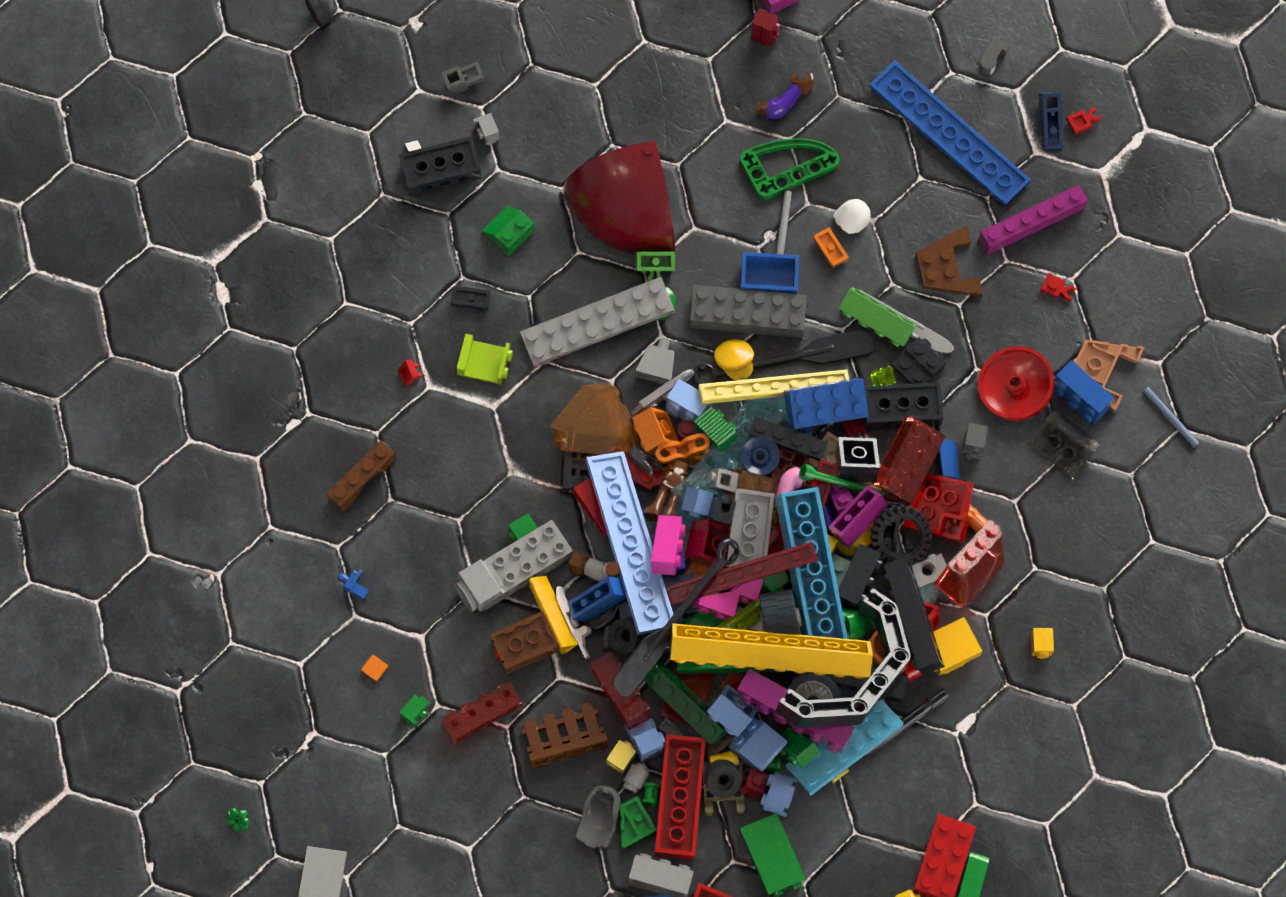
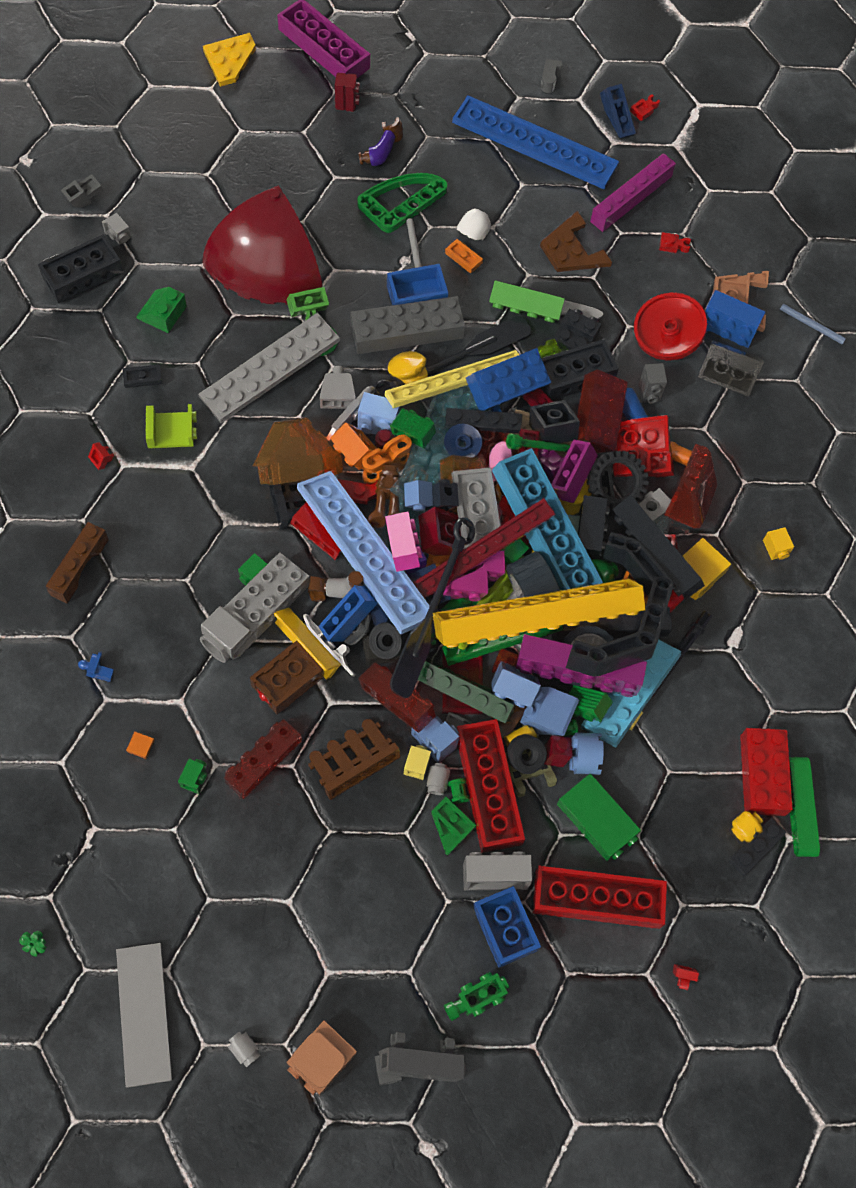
camera: 20 degrees left, 5 degrees down
(599, 817) = (414, 829): dark grey hair -> none
(644, 460) = (353, 474): clear smoke hinge -> none
(722, 480) = (435, 470): light grey brick -> none

